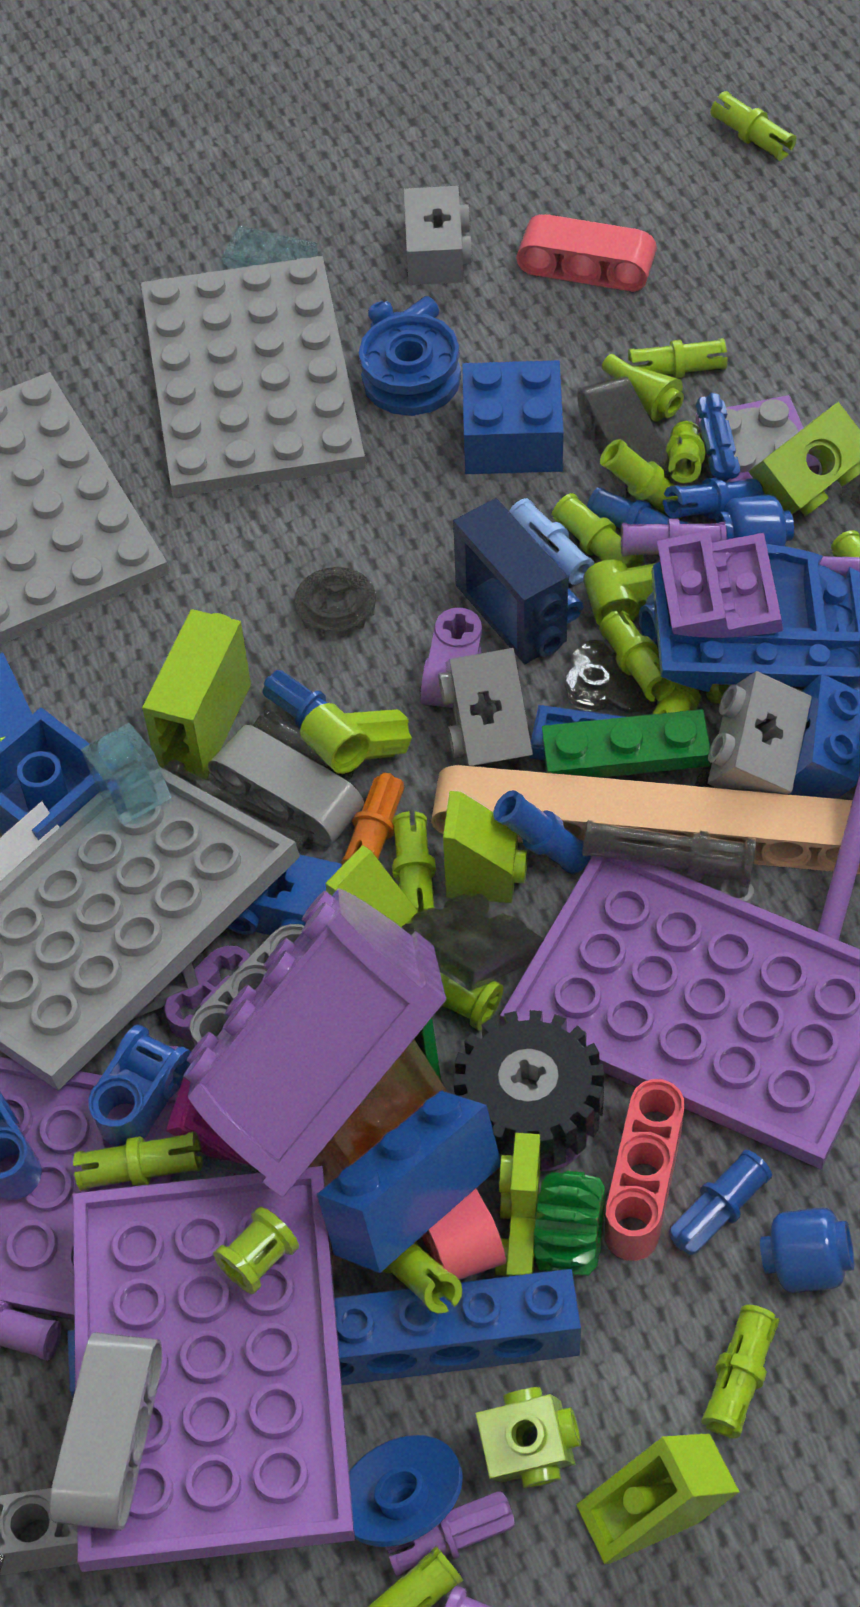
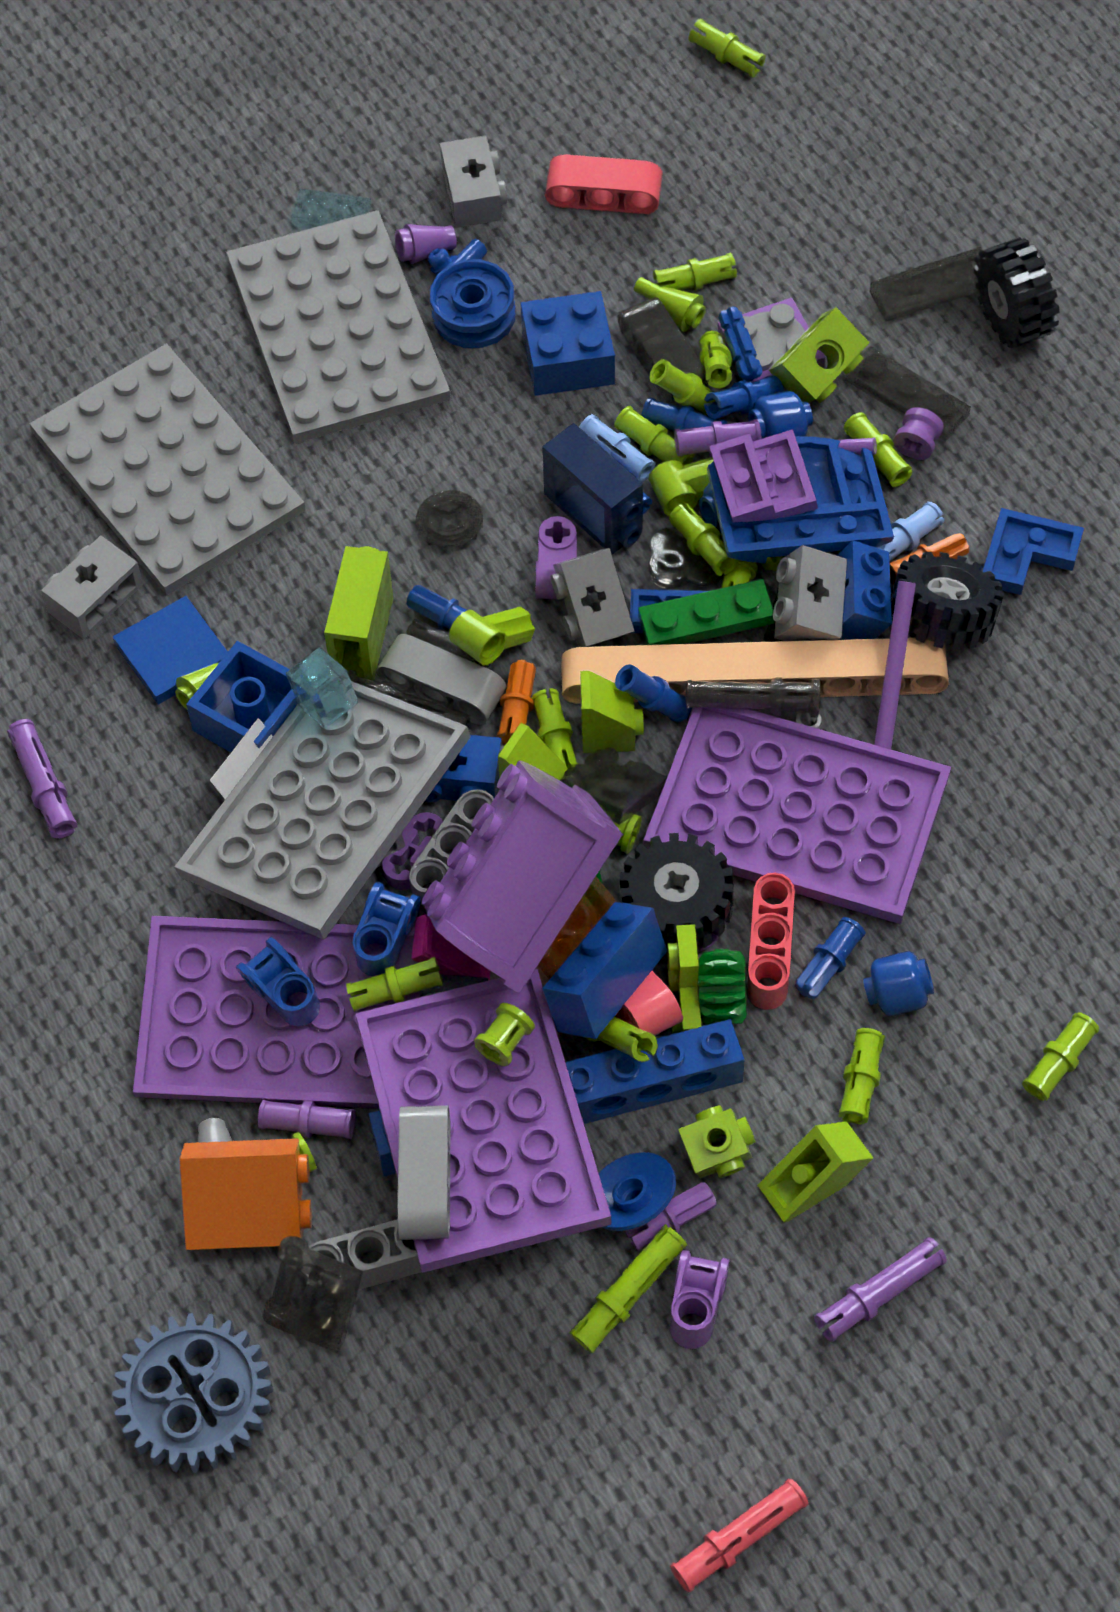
camera: 10 degrees left, 5 degrees up
(359, 291) = (418, 241): none -> medium lavender cone

